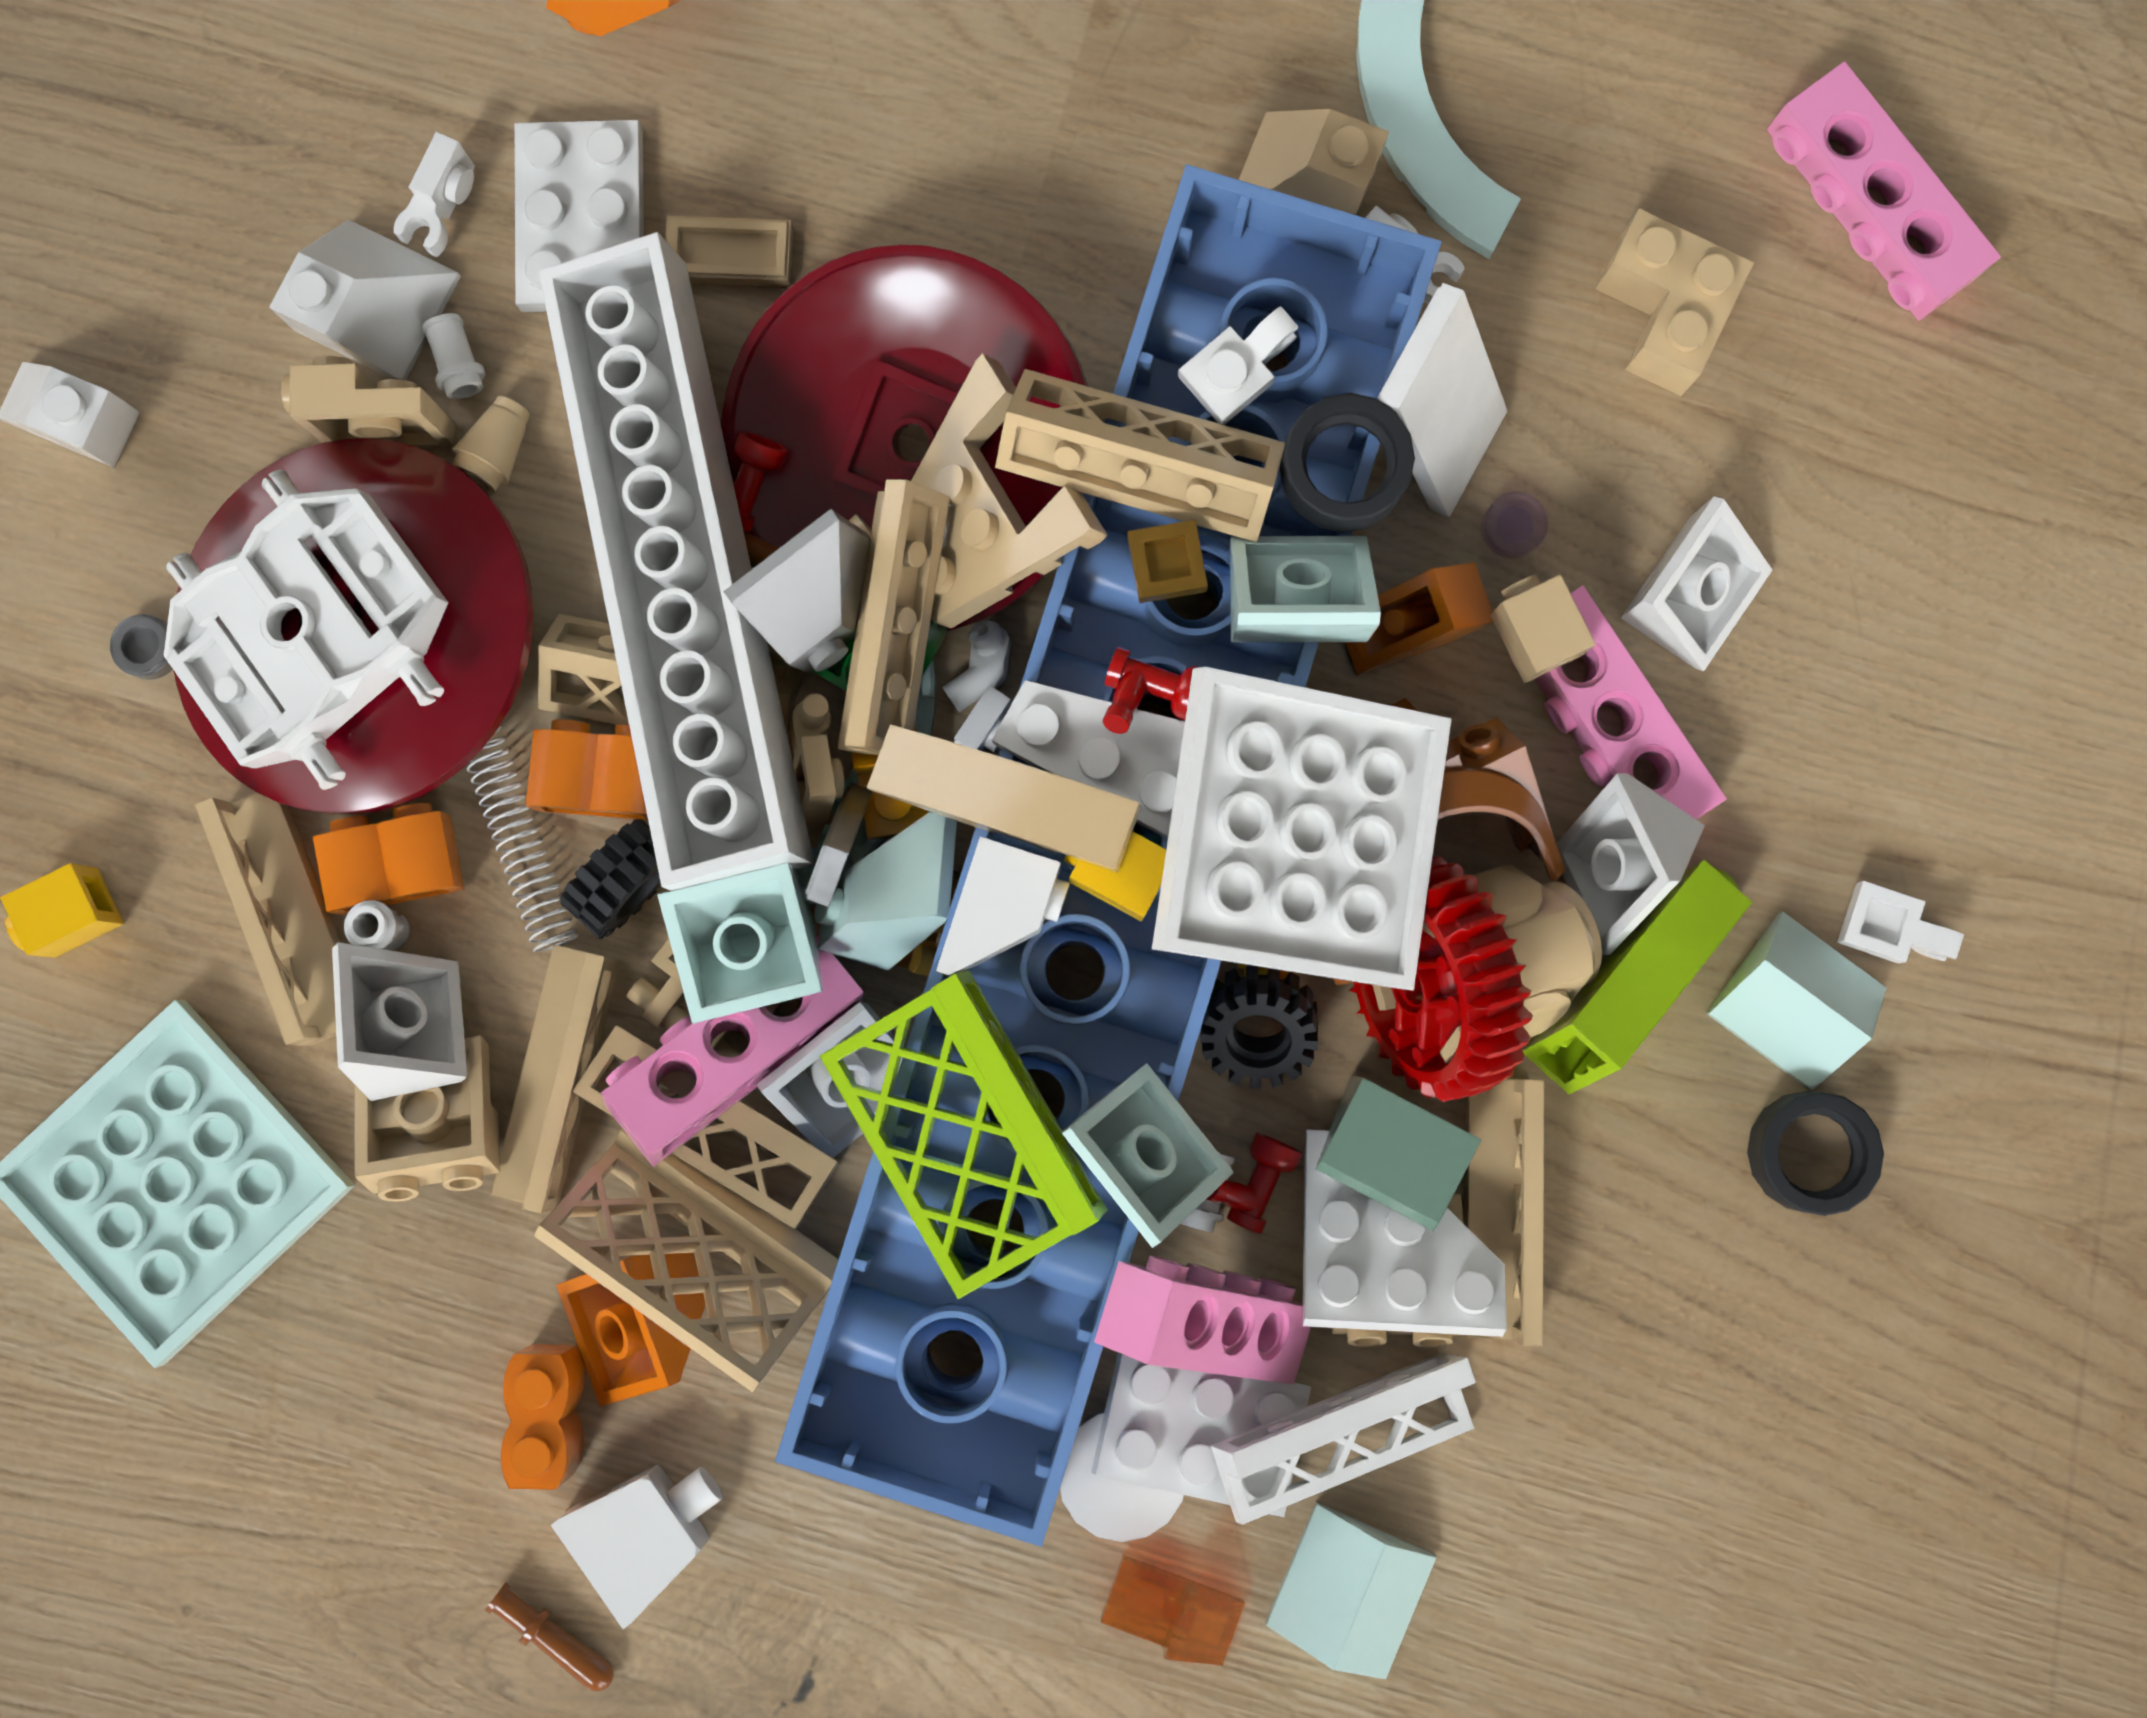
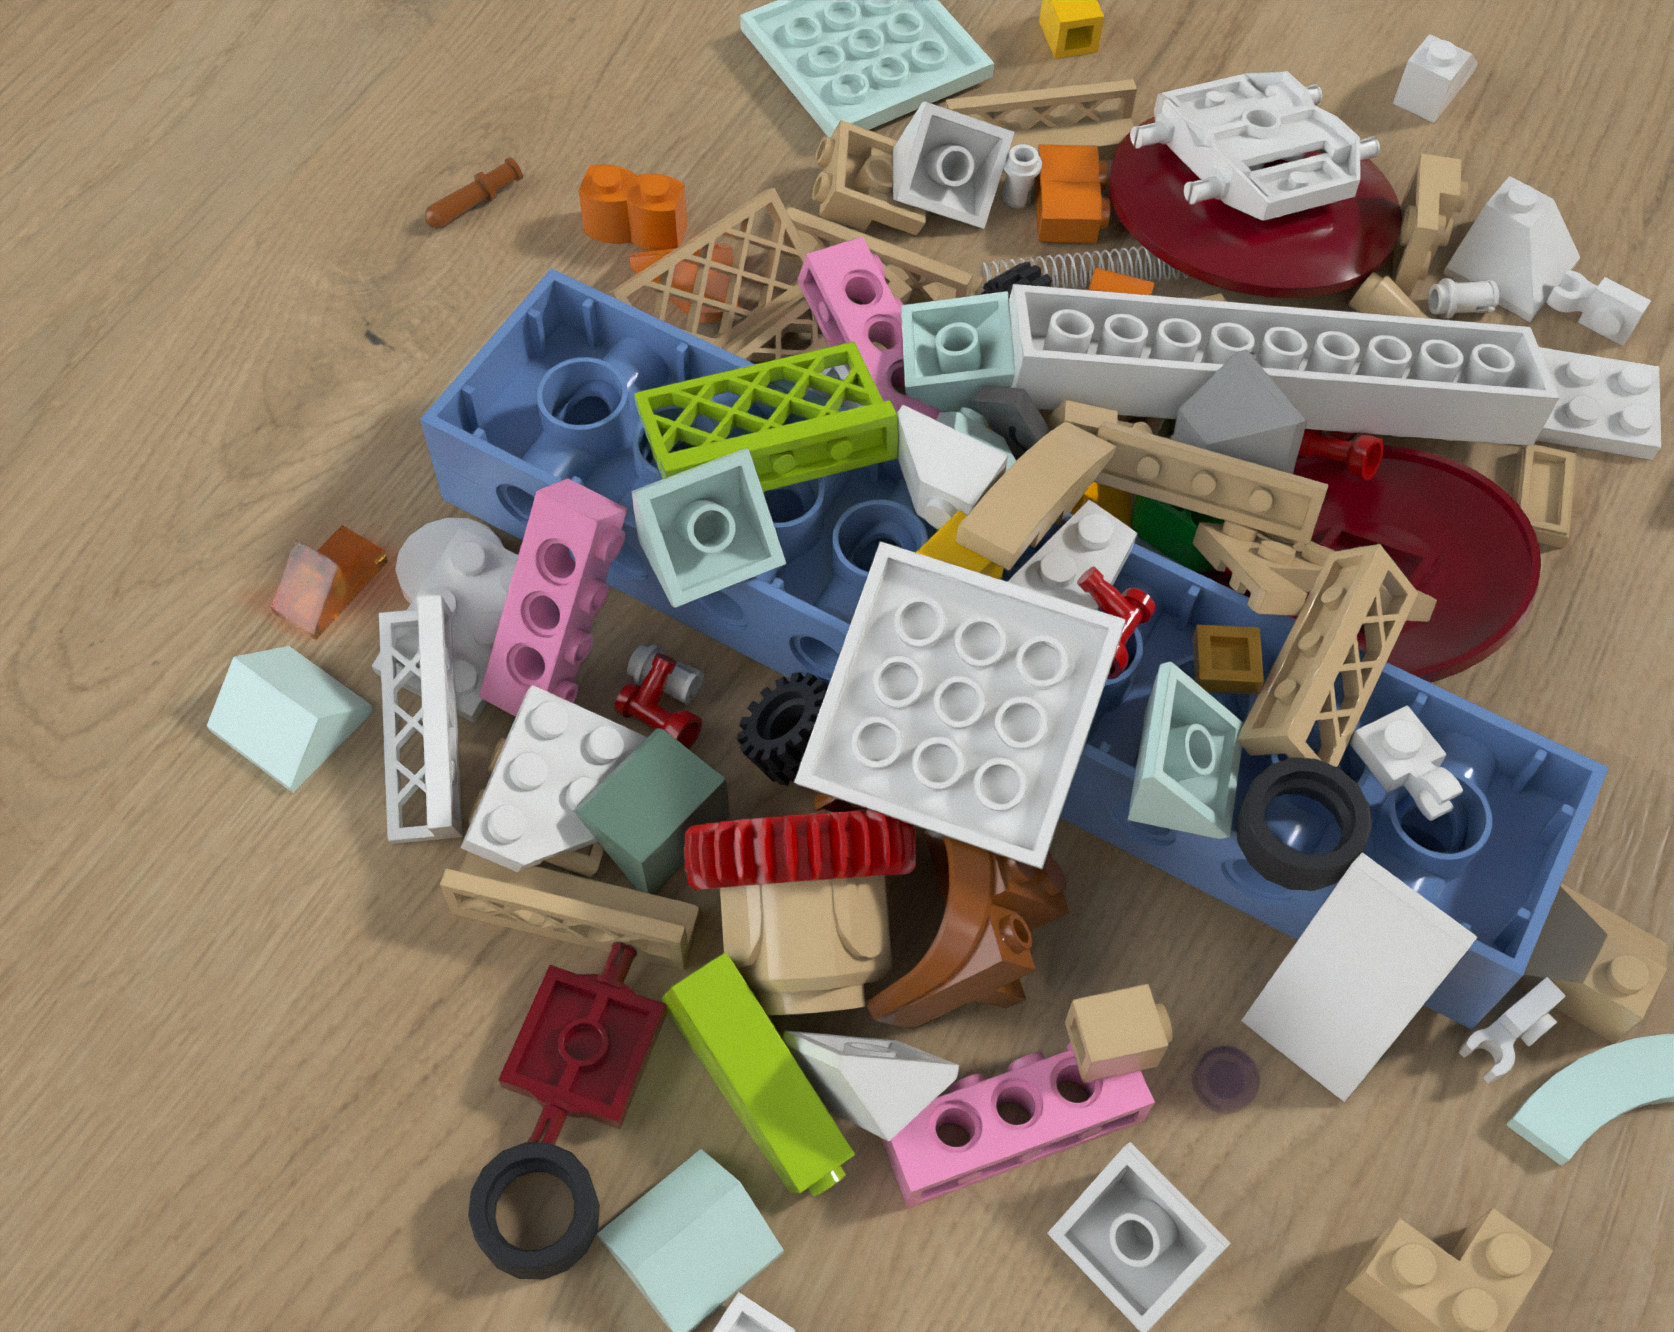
camera: 100 degrees right, 25 degrees down
(638, 1536) = (520, 243): white torso -> none
(1424, 616) = (1149, 949): orange slope -> none
(1646, 1154) = (584, 1046): none -> dark red plate

